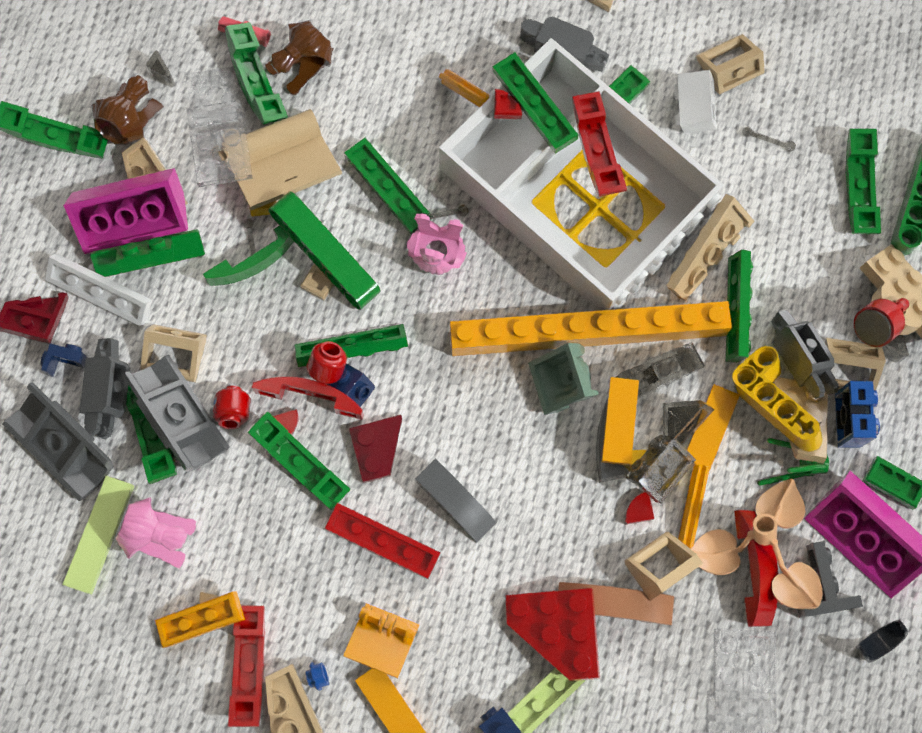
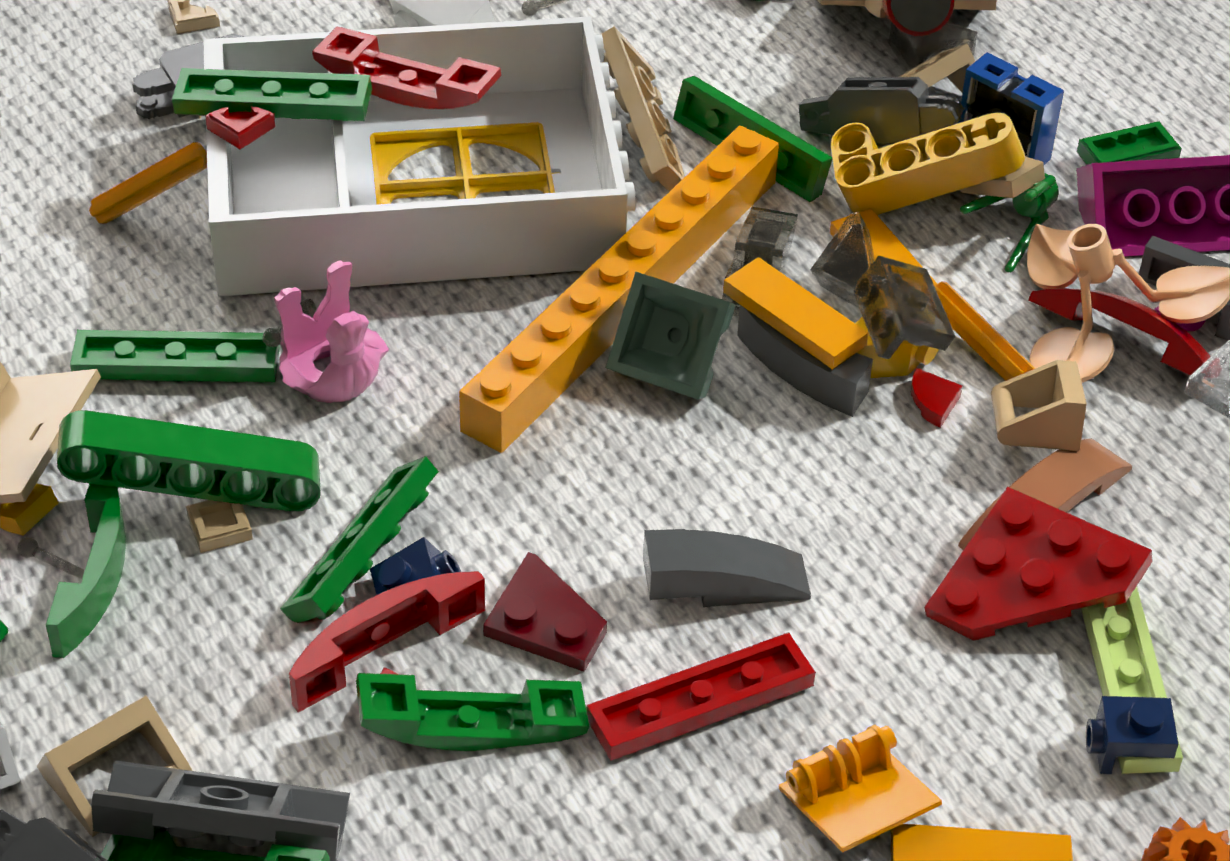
camera: 50 degrees left, 30 degrees down
(231, 407) = (292, 741): red head -> none
(326, 362) = (363, 557): red head -> none

